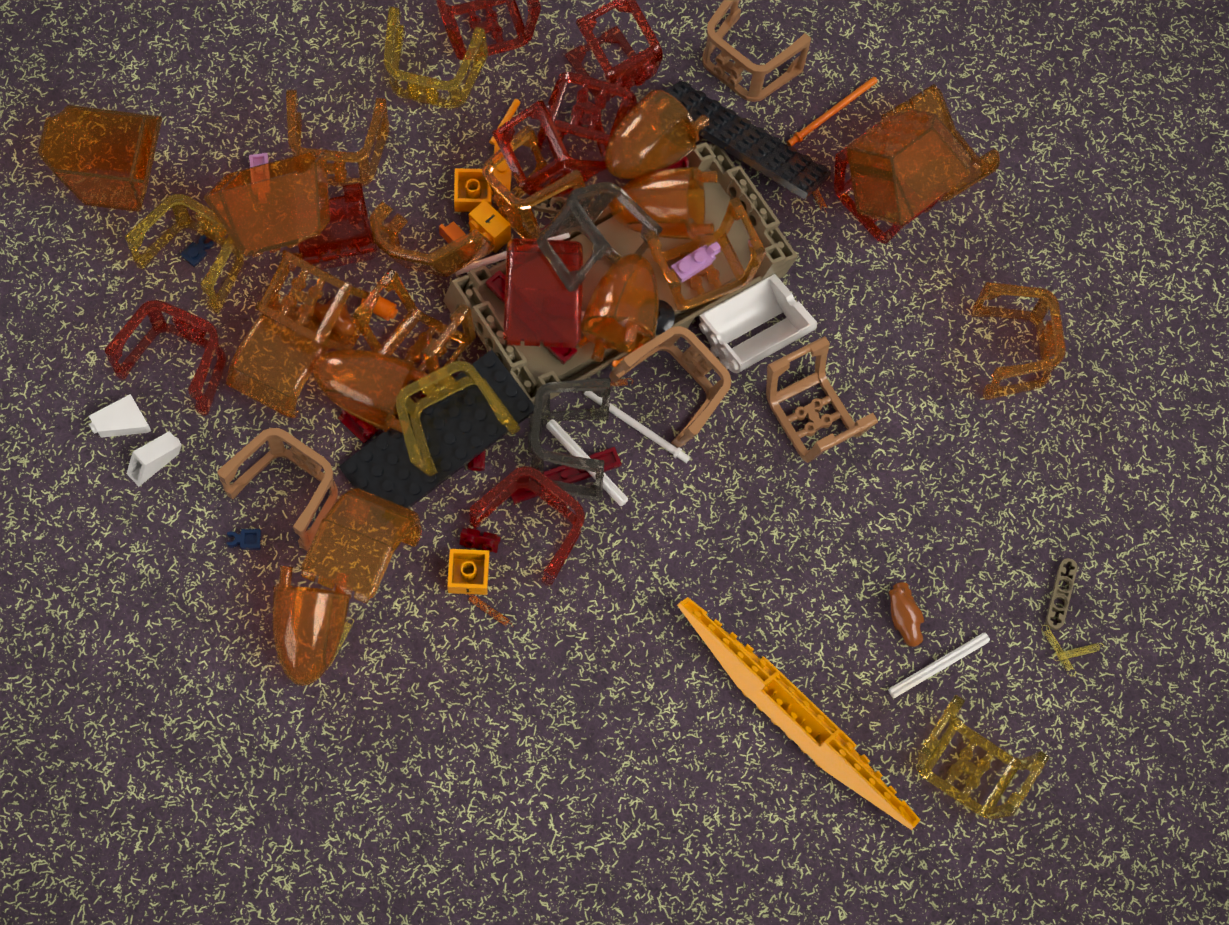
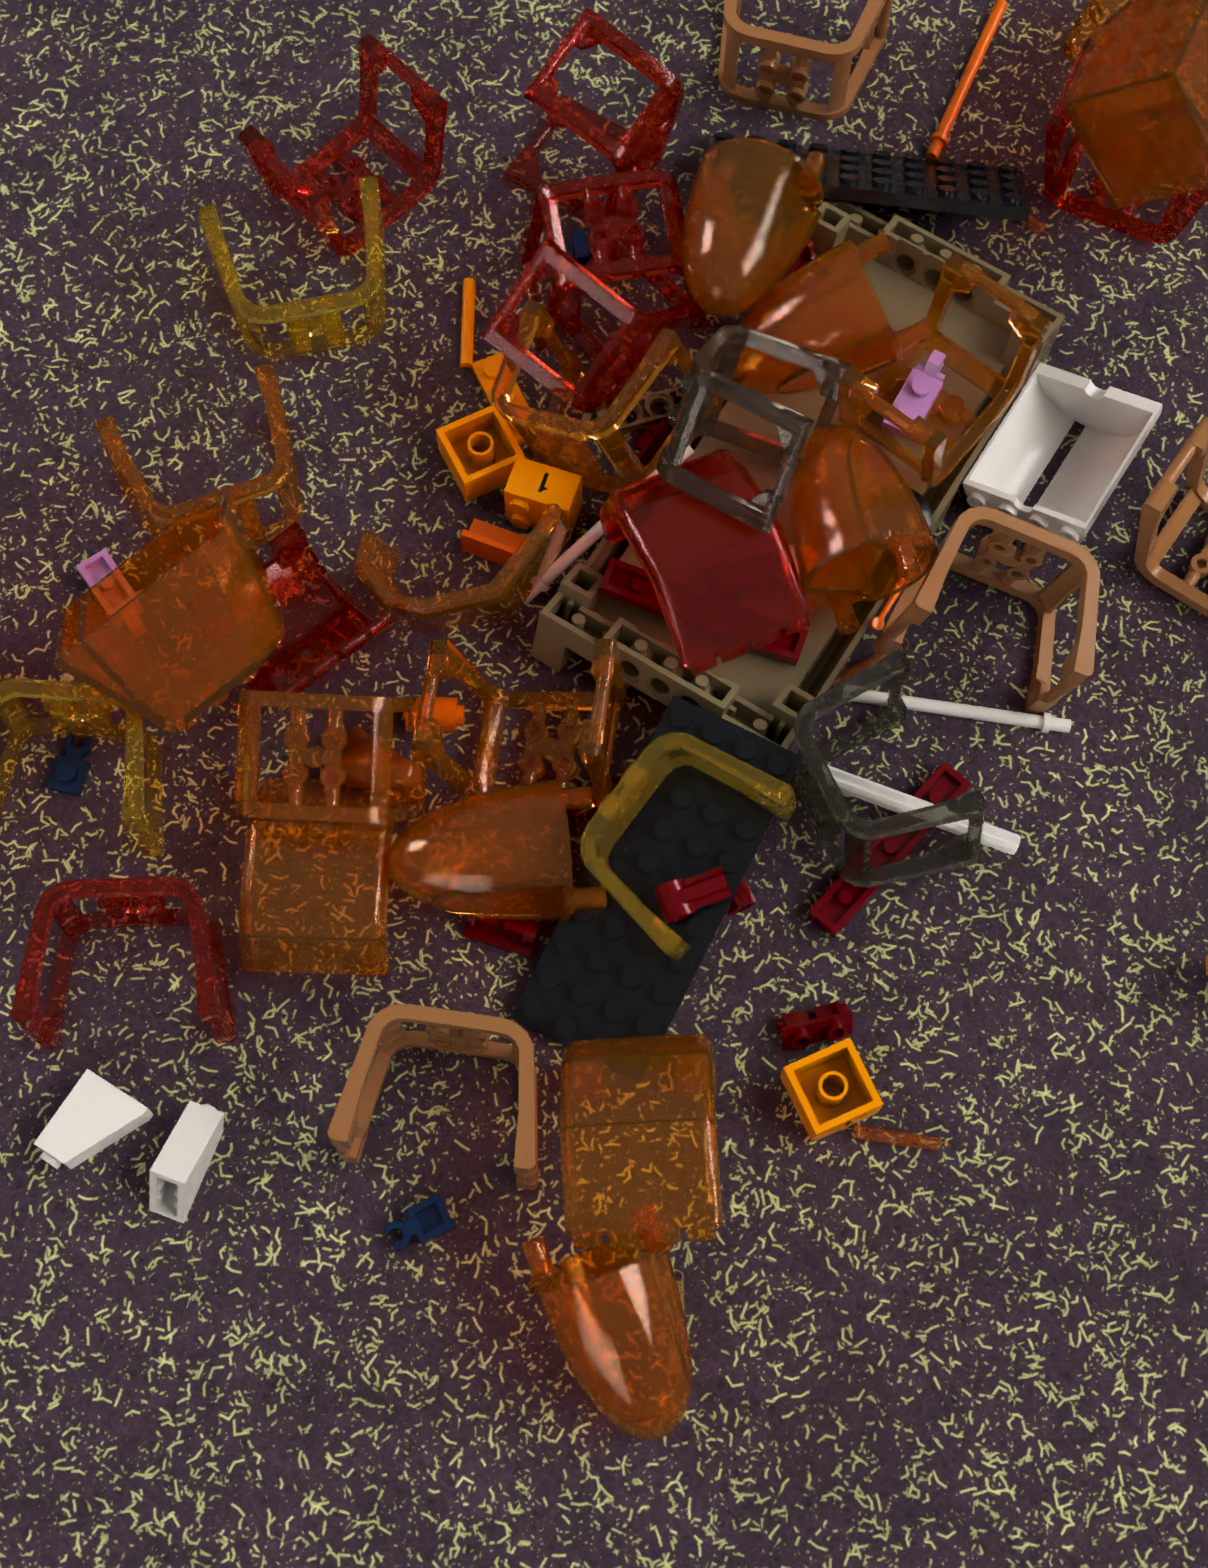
camera: 20 degrees left, 0 degrees up
(444, 446) = (684, 896): none -> dark red piece
(547, 491) = (919, 894): clear red windscreen -> none

